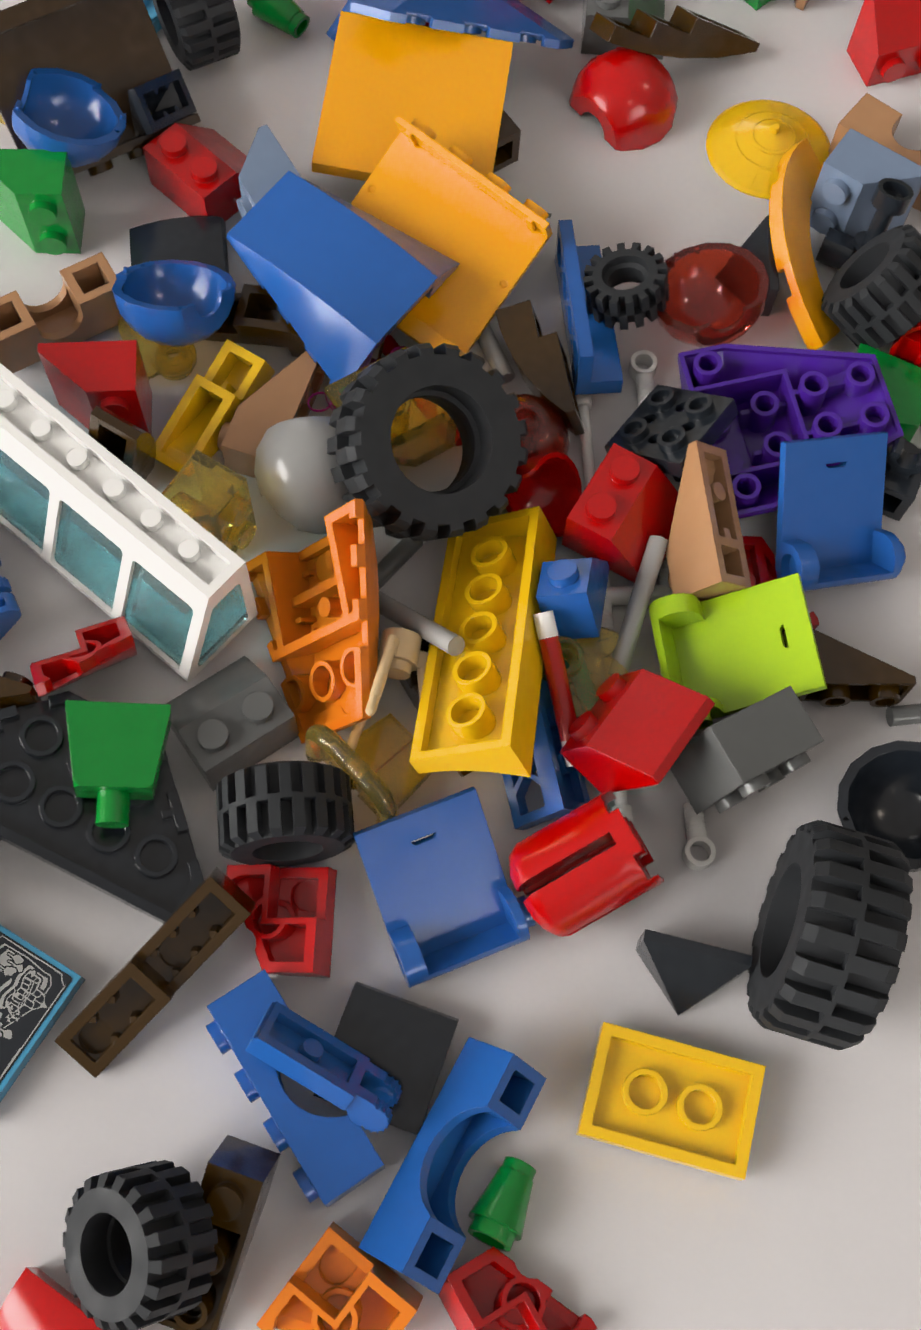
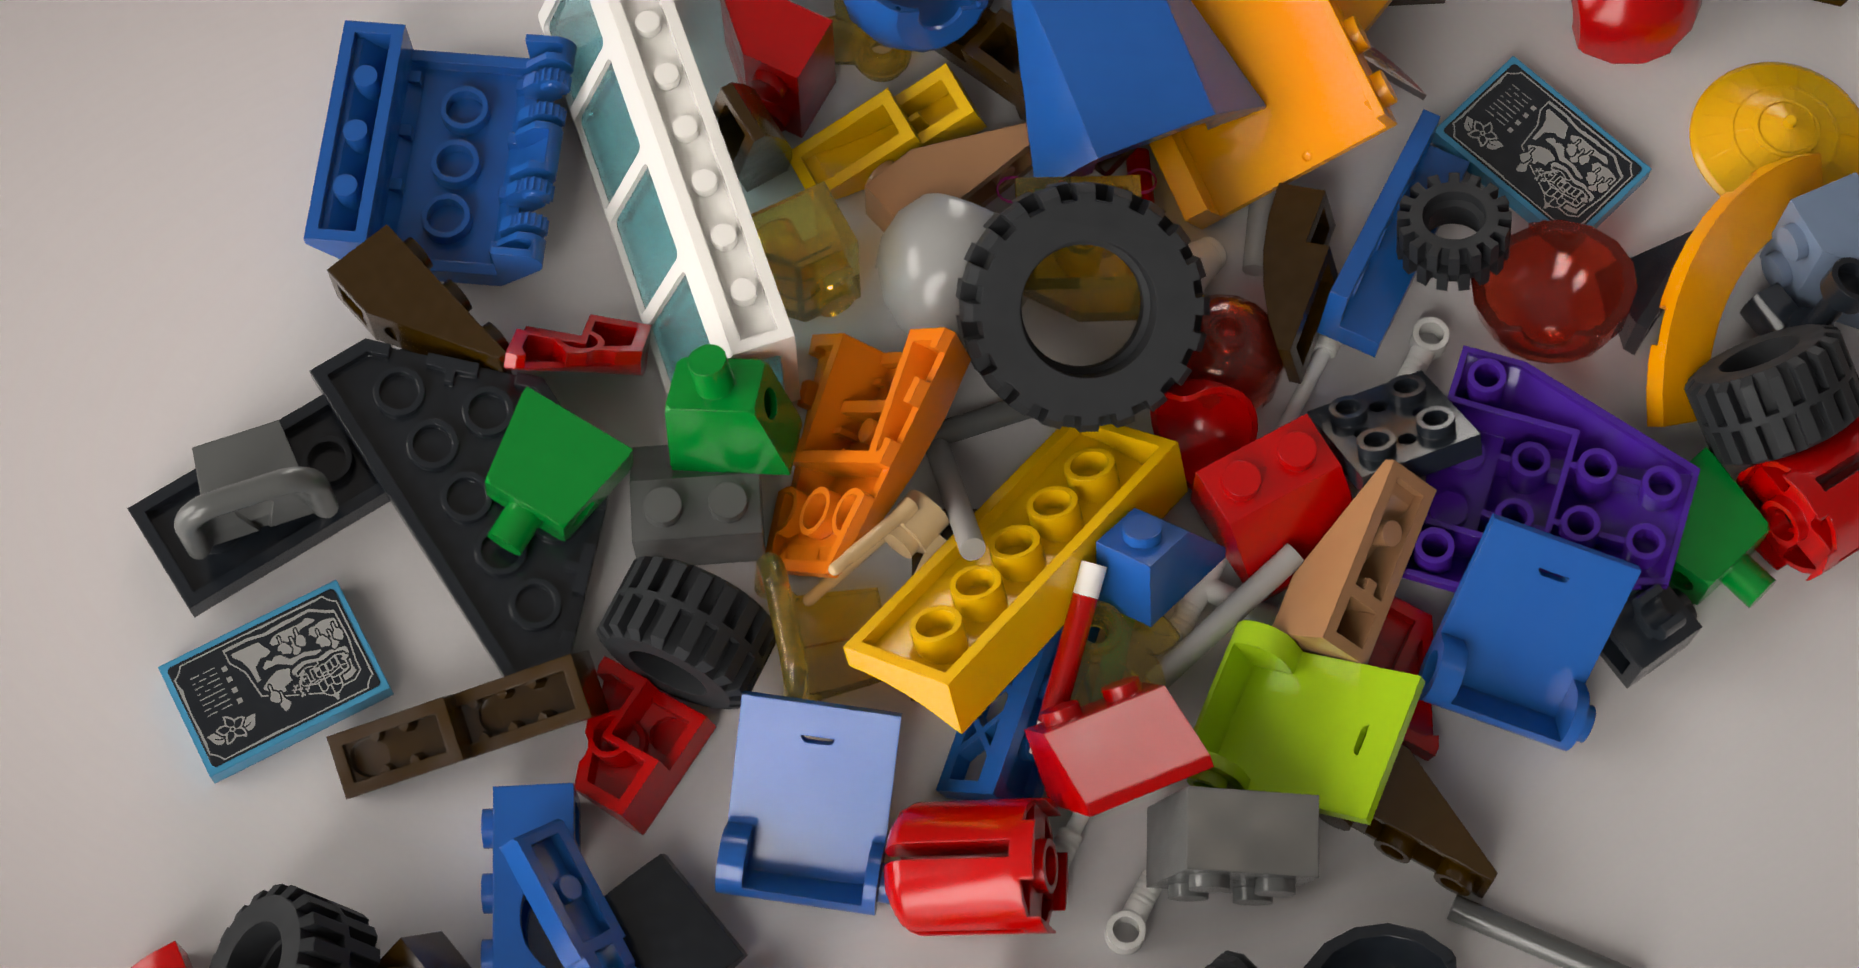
camera: 35 degrees right, 0 degrees up
(226, 644) = (729, 416): none -> green torso
(630, 211) = (1540, 150): none -> tile

